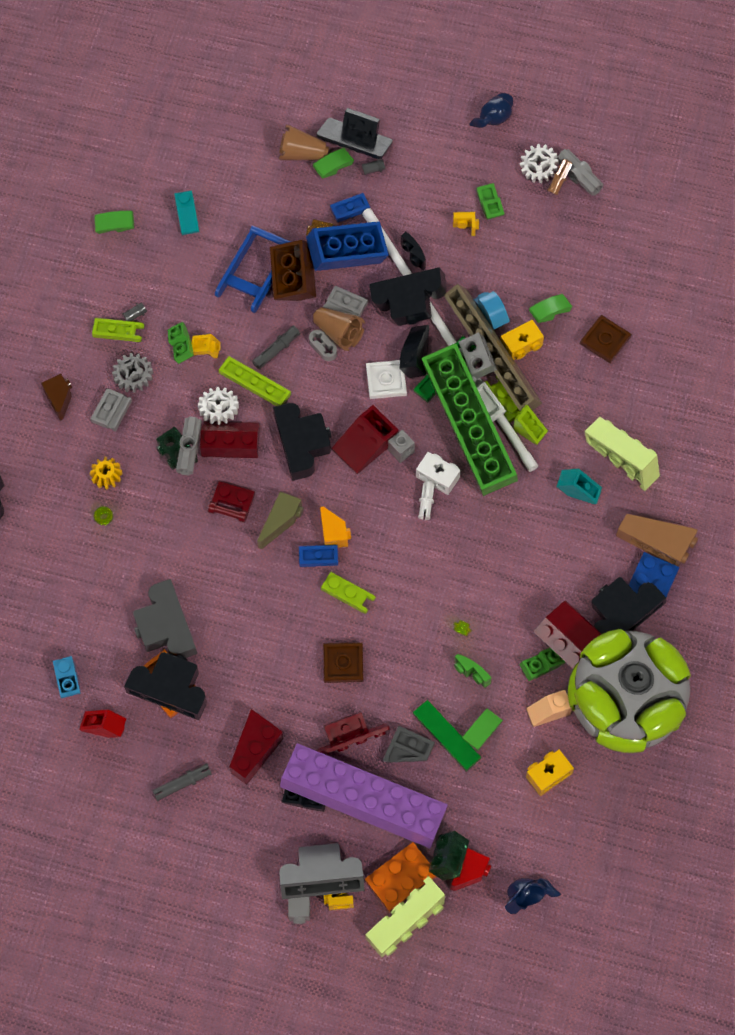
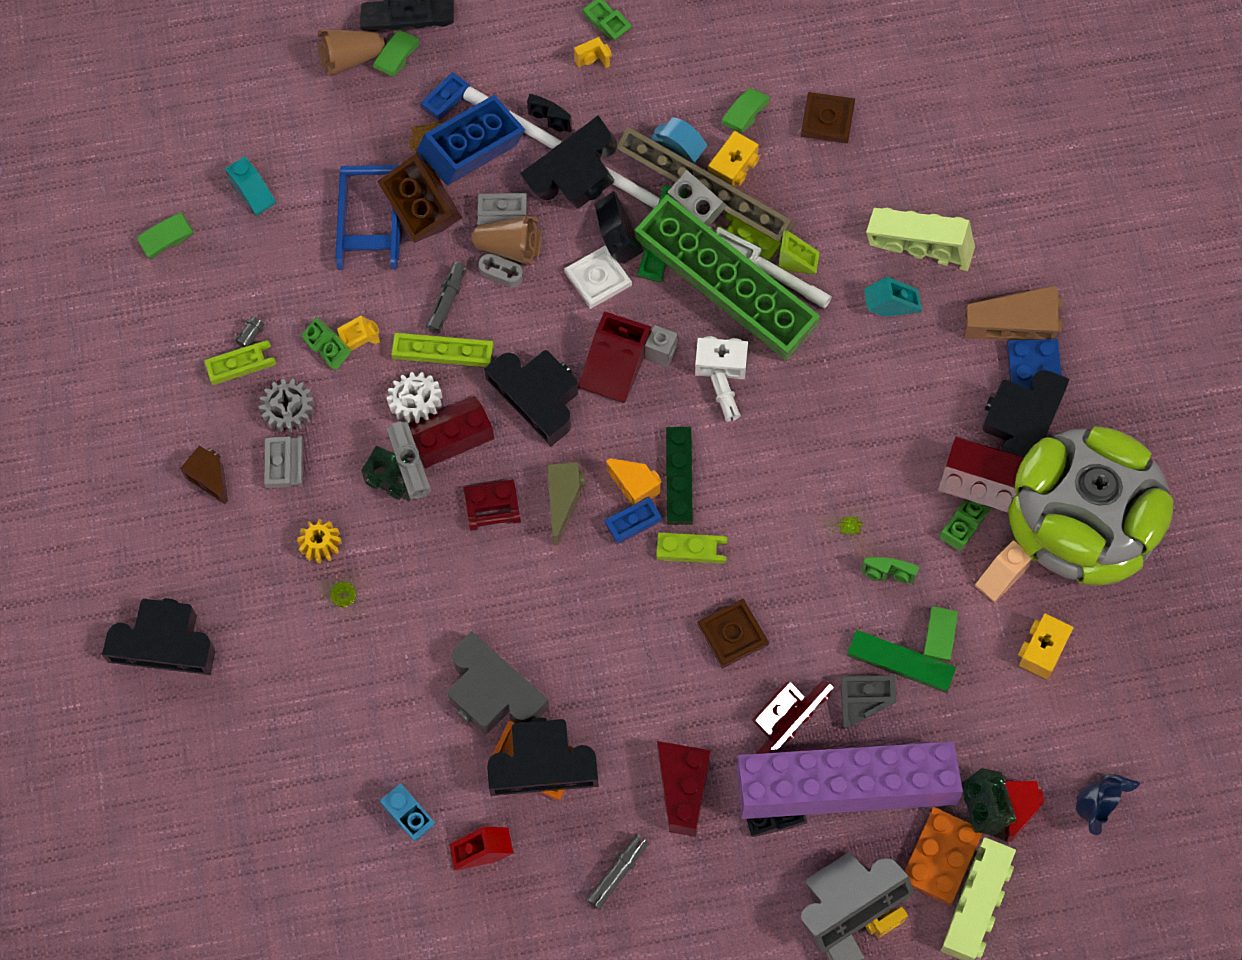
camera: 25 degrees left, 0 degrees up
(366, 540) = (679, 475): none -> dark green plate
(374, 166) = (447, 37): dark grey pin -> none

